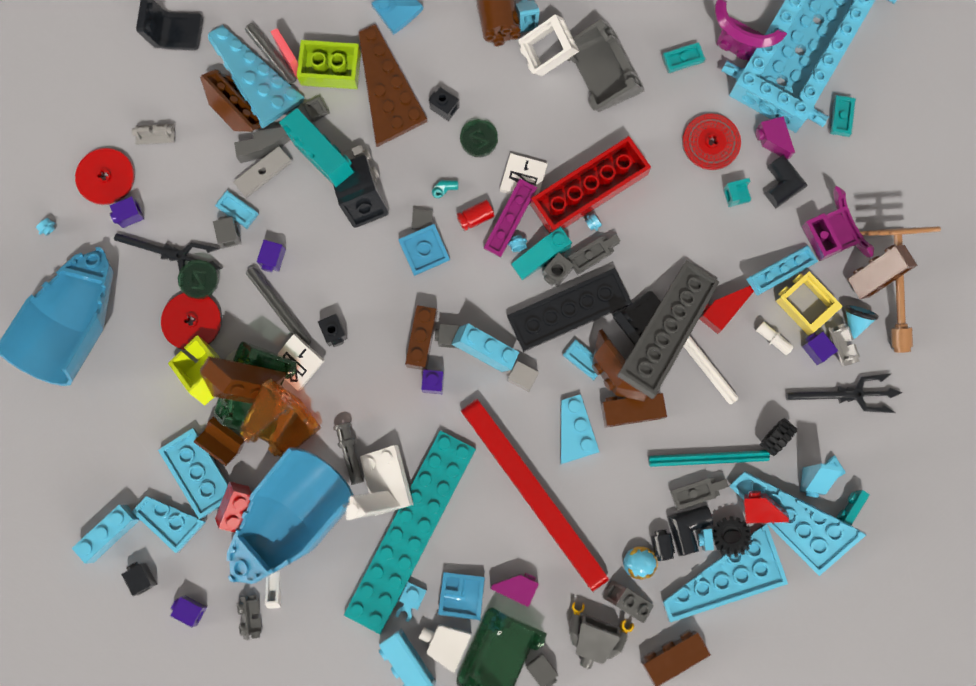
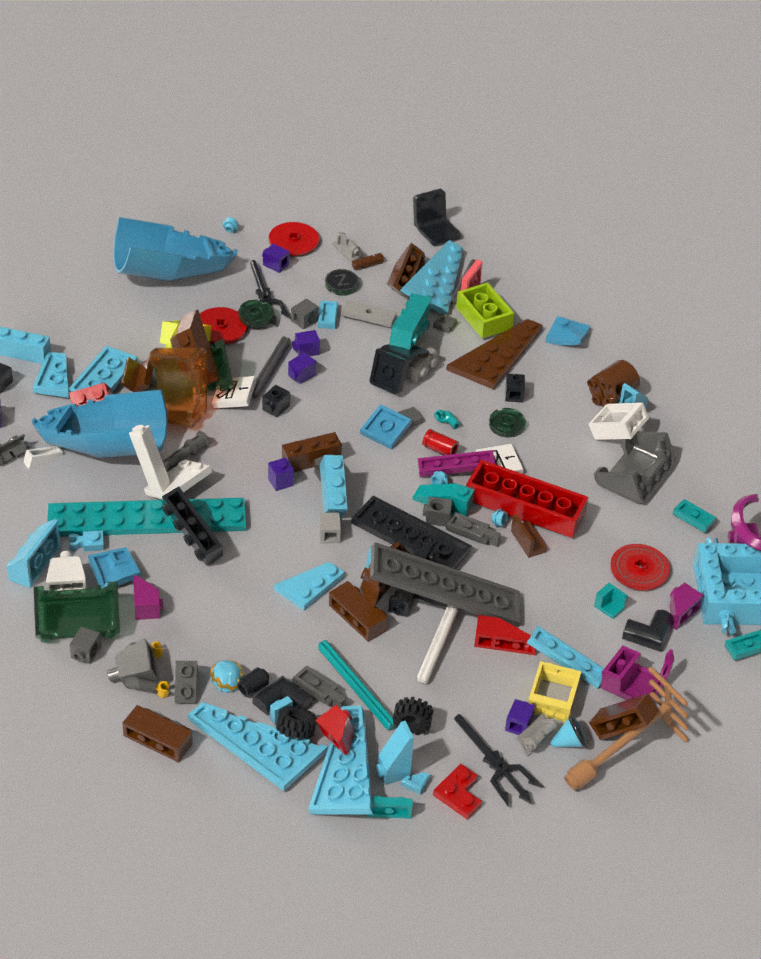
camera: 55 degrees right, 35 degrees down
(184, 126) = (367, 261): none -> reddish brown axle
(198, 168) = (341, 282): none -> tile
(262, 144) = (382, 299): dark grey slope -> none
(302, 280) = (302, 368): none -> dark purple brick
(463, 503) = (192, 525): none -> black brick
(535, 495) = (232, 580): red beam -> none
(628, 212) = (527, 537): none -> reddish brown panel
(774, 338) = (502, 683): white axle -> none
(857, 446) = (454, 791): none -> red plate

